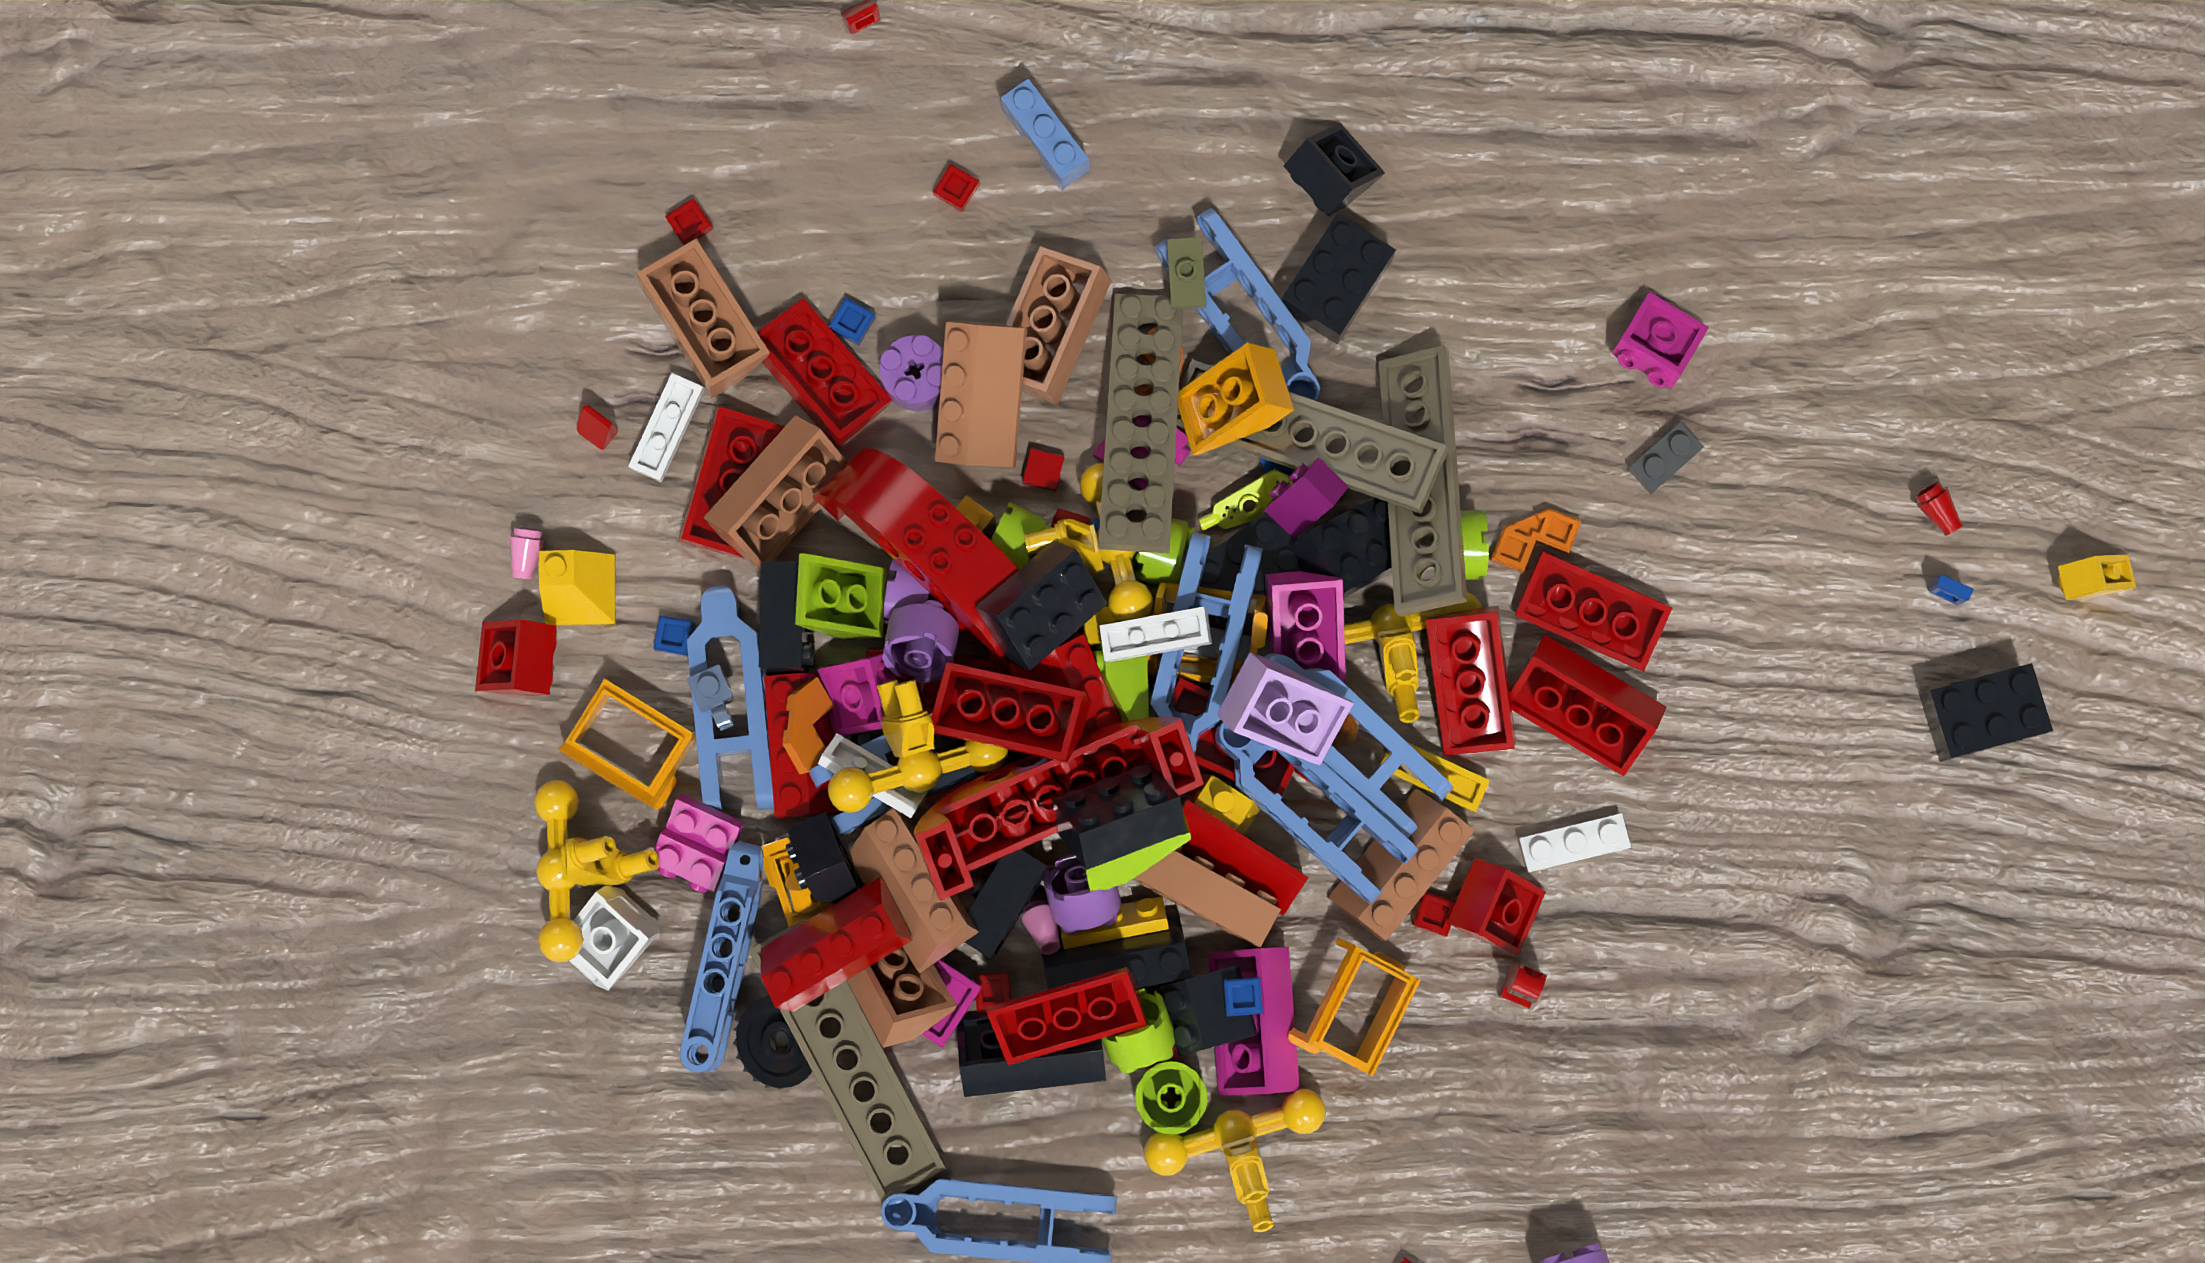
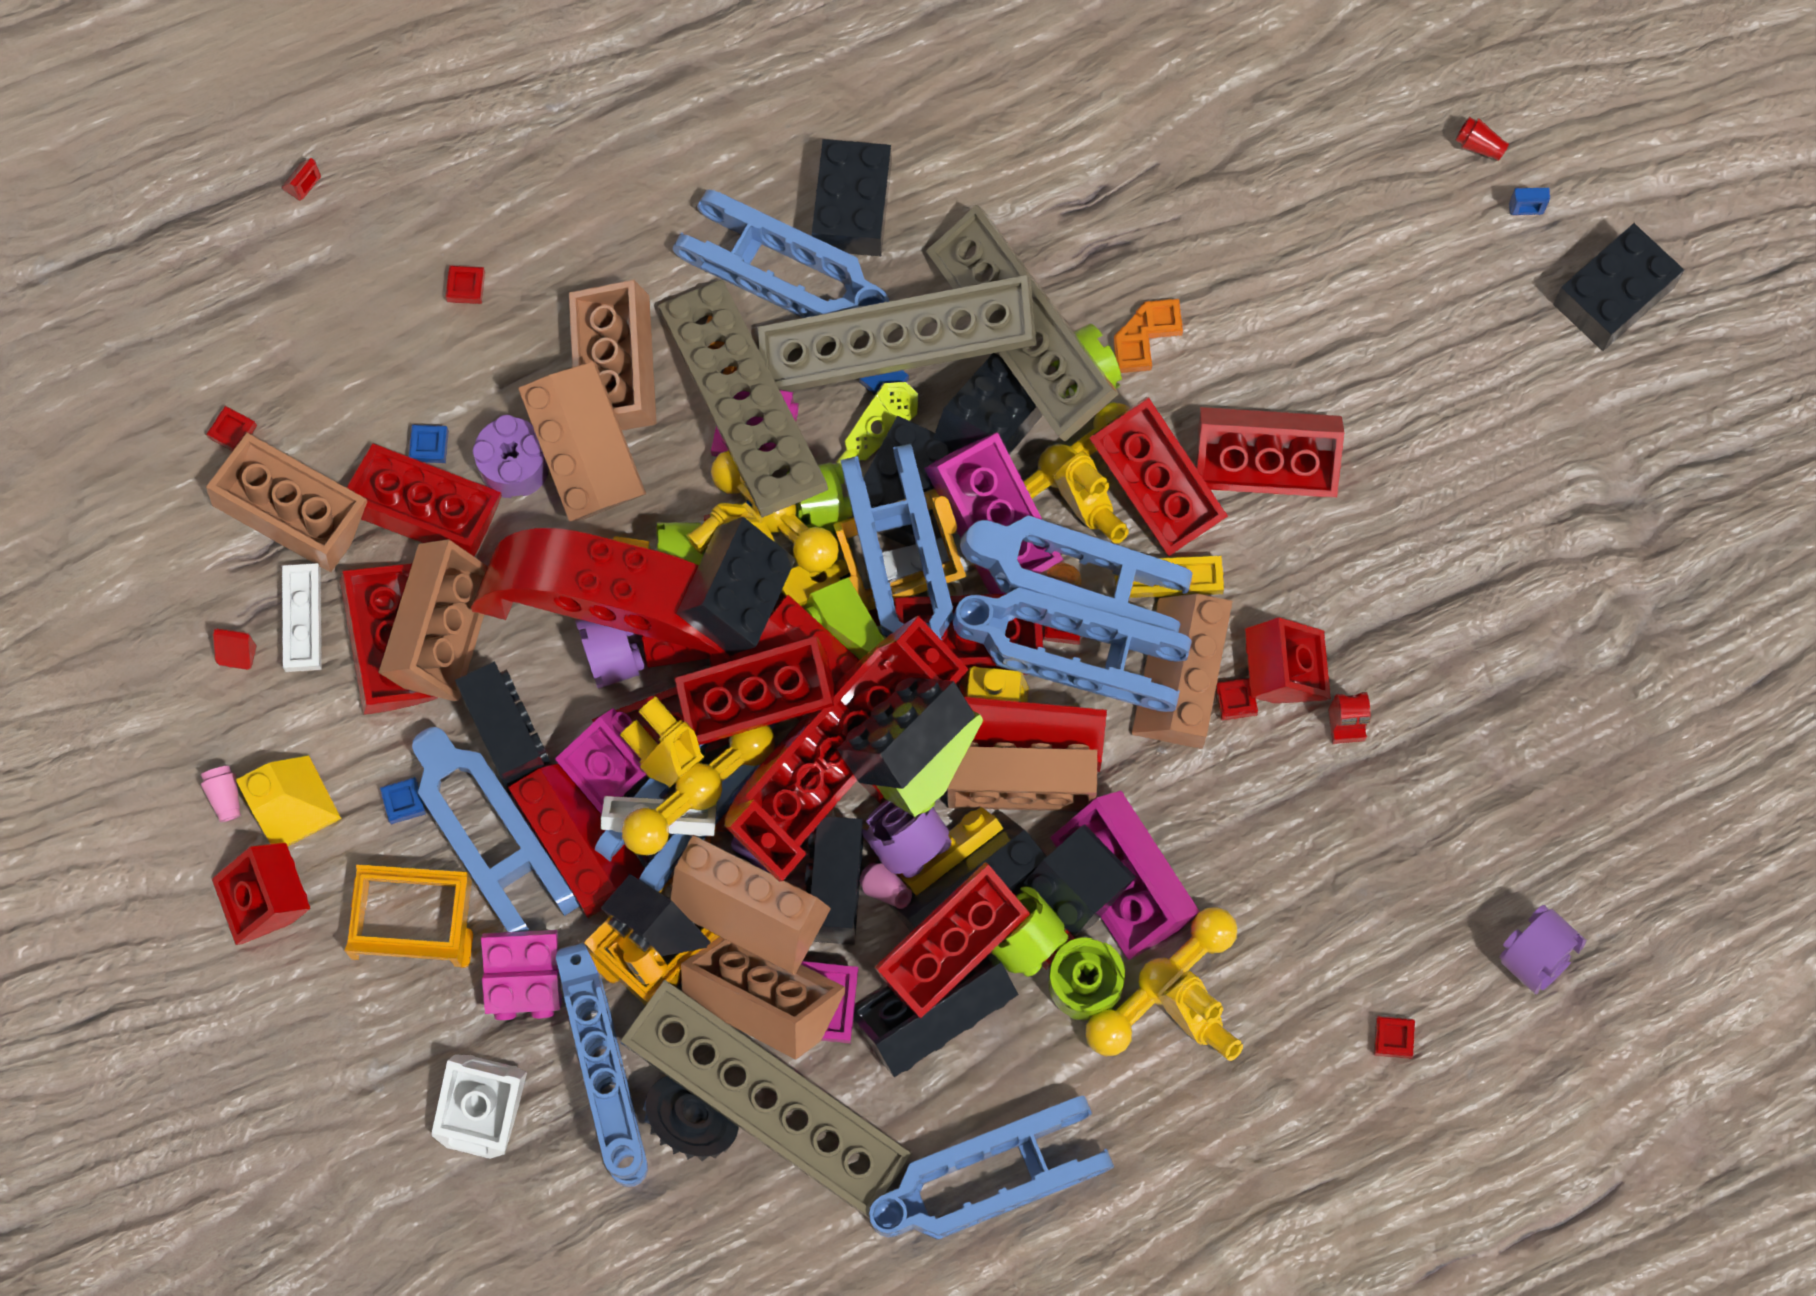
camera: 30 degrees left, 10 degrees down
(574, 863) = (420, 1040): yellow connector -> none
(712, 692) = (467, 825): sand blue plate -> none
(801, 739) = (572, 824): orange tile -> none
(833, 946) = (702, 989): red slope -> none
(840, 597) = (546, 680): lime slope -> none
(920, 641) = (636, 674): medium lavender brick -> none
(994, 991) = (868, 977): red tile -> none
(1043, 470) = (673, 487): red tile -> none
(1051, 139) = (503, 187): medium blue arch -> none
(1155, 634) = (854, 560): white plate -> none
(1186, 273) = (714, 251): olive plate -> none
(1234, 399) = (815, 335): light orange slope -> none
(1242, 996) = (1104, 847): blue tile -> none
(1283, 709) = (1006, 564): lavender slope -> none
(1306, 497) = (925, 385): magenta brick -> none
(1333, 169) = (797, 110): black slope -> none
(1385, 1021) = (1244, 813): light orange piece -> none
(1574, 843) = (1325, 575): white plate -> none
(1593, 611) = (1231, 368): red slope -> none
(1659, 341) = (1163, 117): dark pink plate -> none
(1665, 458) = (1222, 212): dark grey plate -> none
(2096, 576) = (1645, 131): yellow slope -> none

